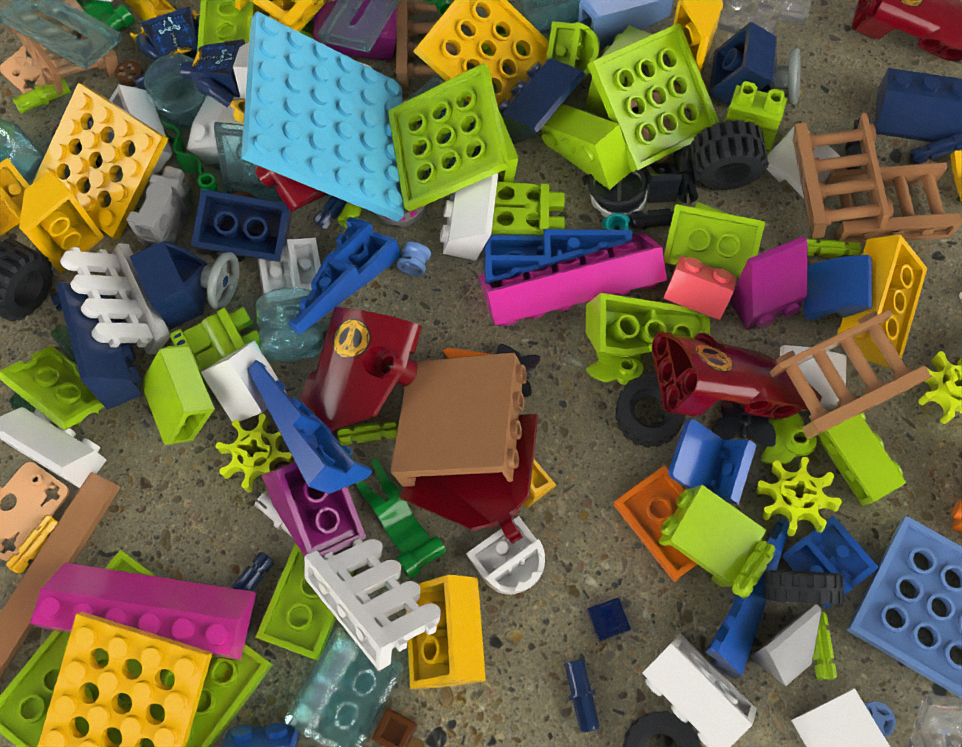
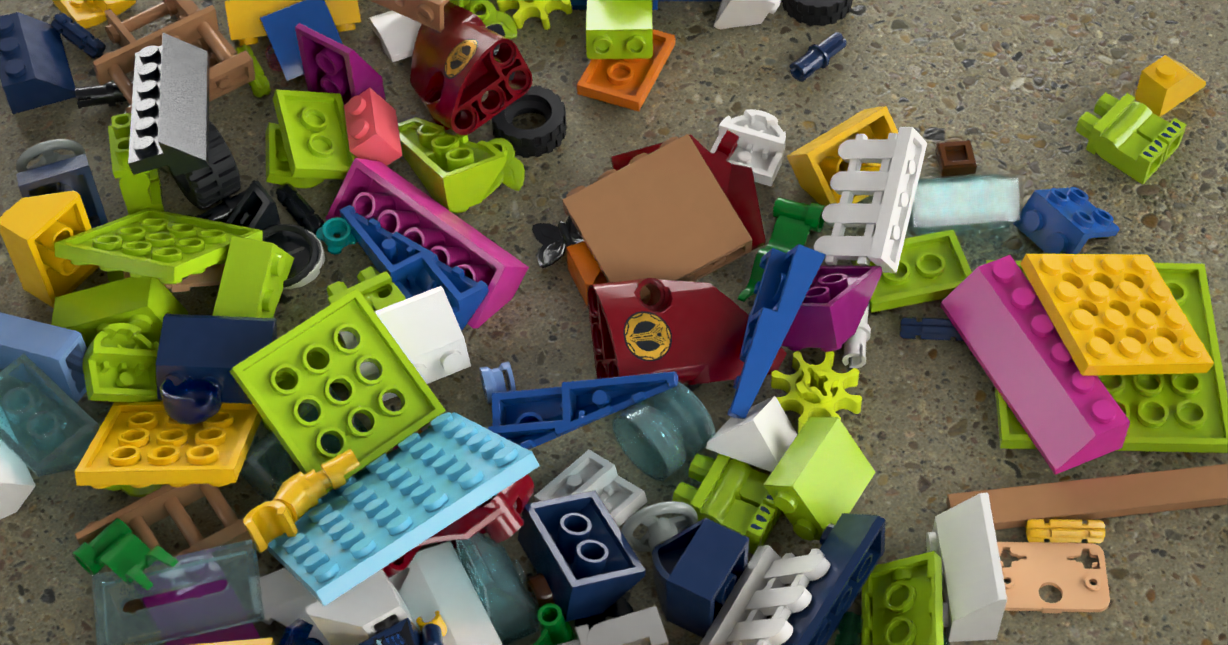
camera: 125 degrees left, 15 degrees down
(385, 82) = (295, 498): none -> yellow piece
(507, 62) = (191, 400): none -> clear blue hair
(608, 619) = (743, 69): clear blue tile -> none
(711, 461) = (552, 46): blue bracket -> none
(768, 127) = (170, 108): none -> slope

